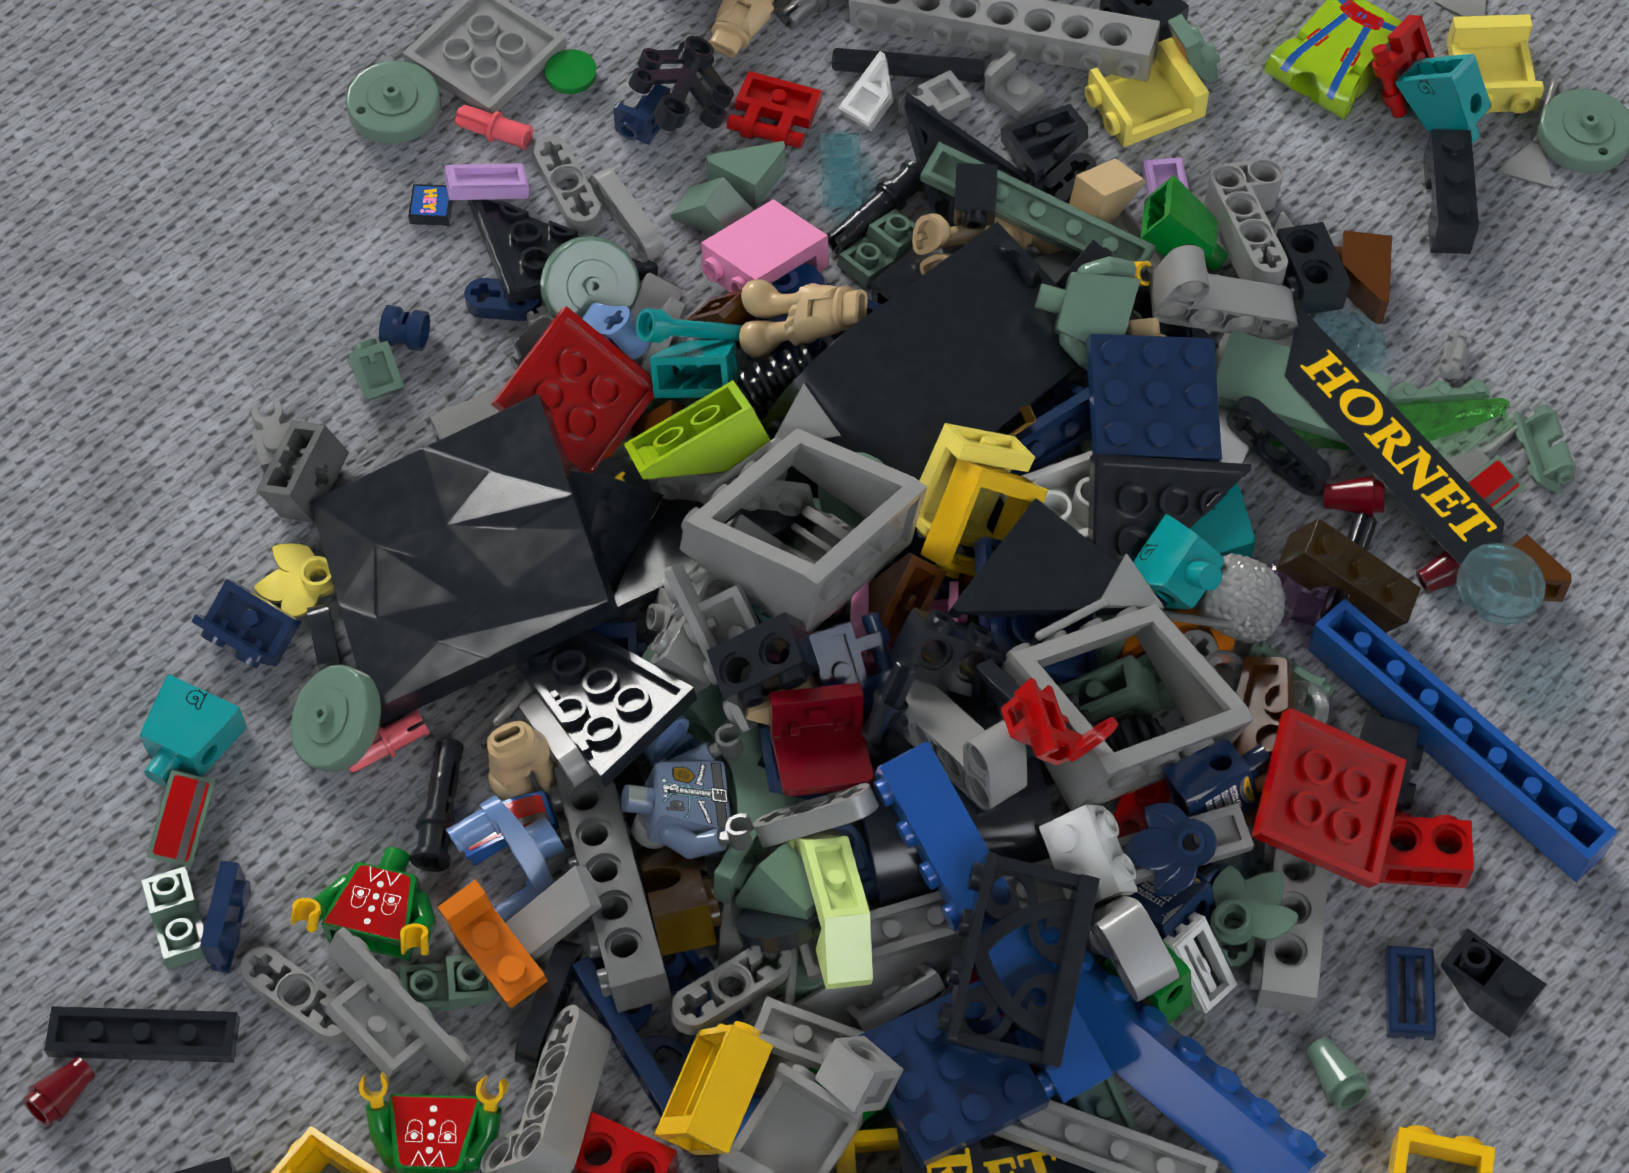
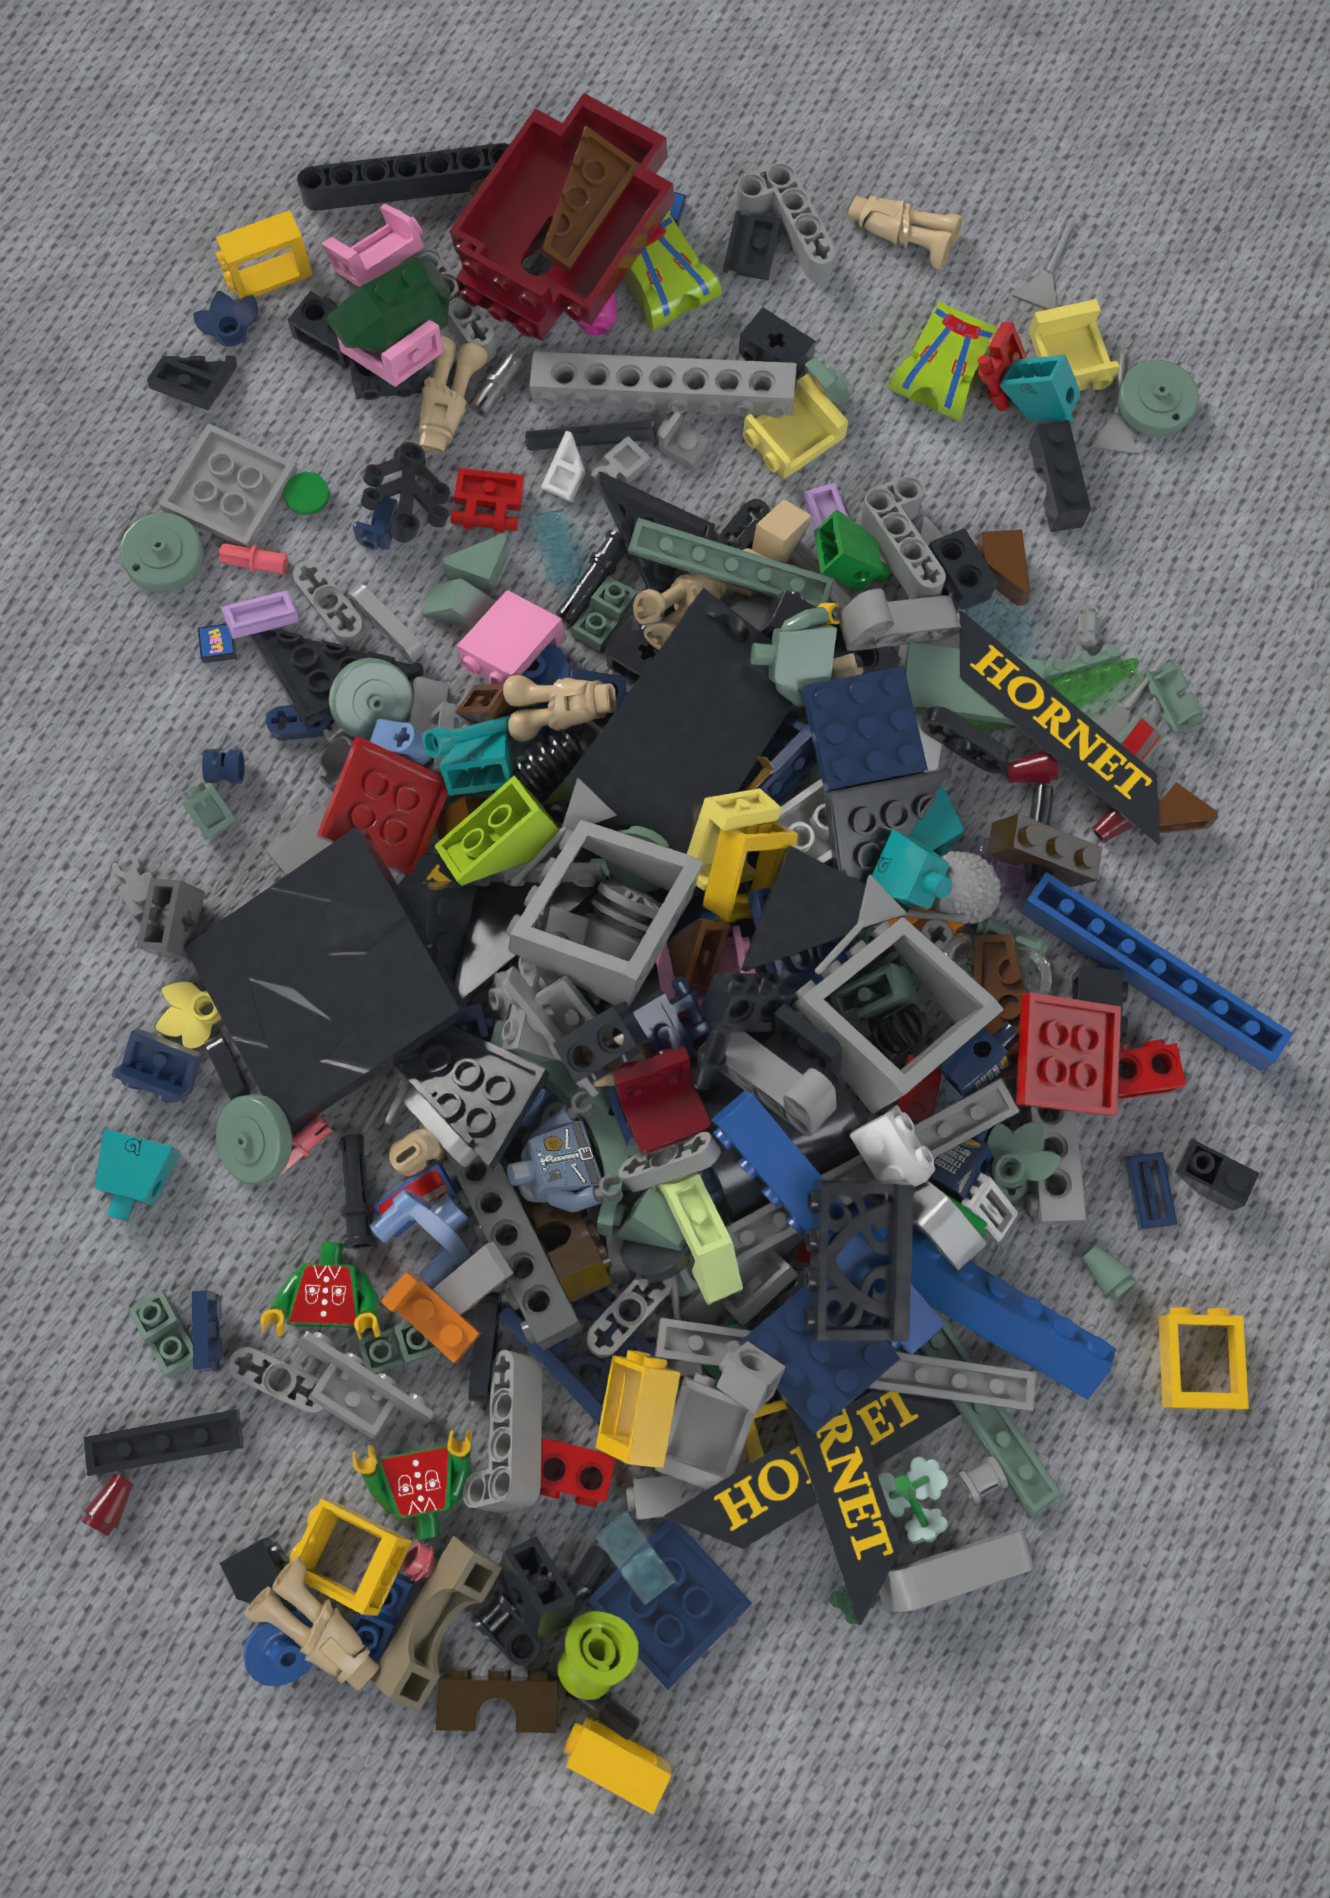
camera: 15 degrees left, 15 degrees up
(181, 818) = (147, 1249): slope -> none
(975, 195) = (680, 564): black brick -> none
(1045, 140) = (720, 488): black wing -> none
(1045, 726) = (848, 1071): red piece -> none
(1164, 848) = (950, 1132): dark blue plate -> none
(1501, 583) = (1166, 833): clear light blue tile -> none

